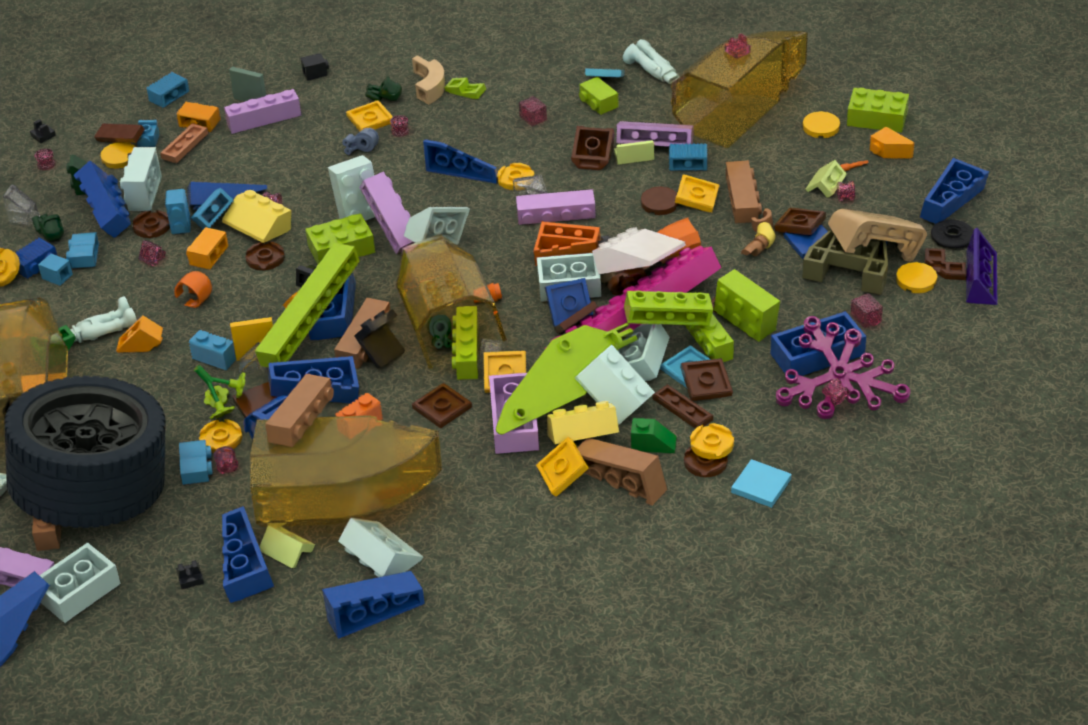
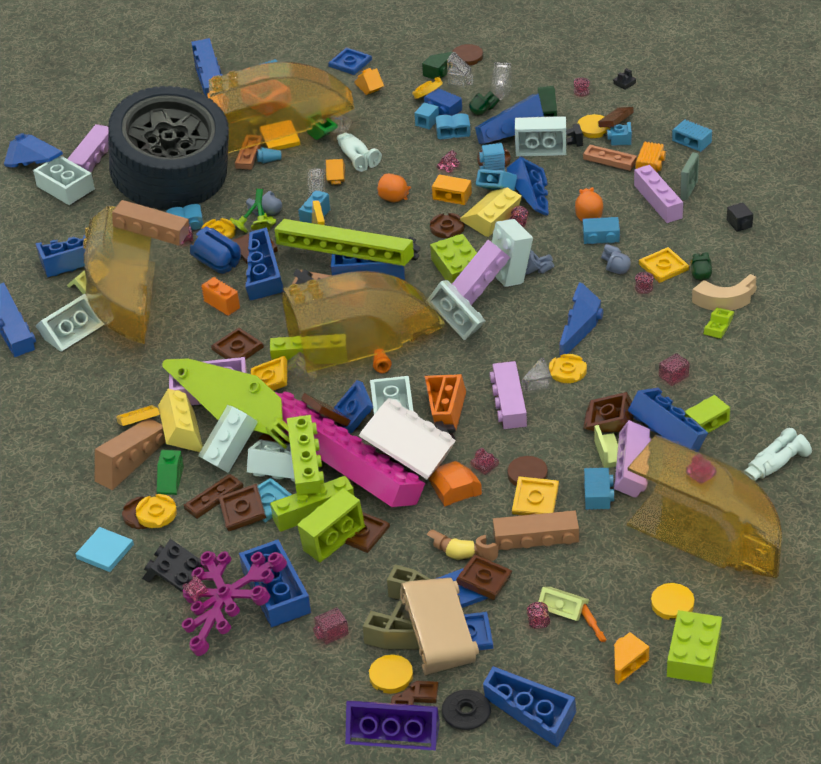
camera: 90 degrees right, 0 degrees up
(167, 351) = (316, 180): none -> clear slope
(188, 392) = (270, 204): none -> sand blue piece
(189, 575) = (67, 232): black tile -> none
(271, 152) = (588, 204): none -> orange helmet
(311, 149) = (601, 230): none -> dark azure brick
(604, 72) = (747, 416): medium azure tile -> none
(610, 110) = (666, 419): none -> blue wedge
(646, 222) = (484, 461): none -> clear pink tile
(788, 427) = (172, 564): none -> black bracket

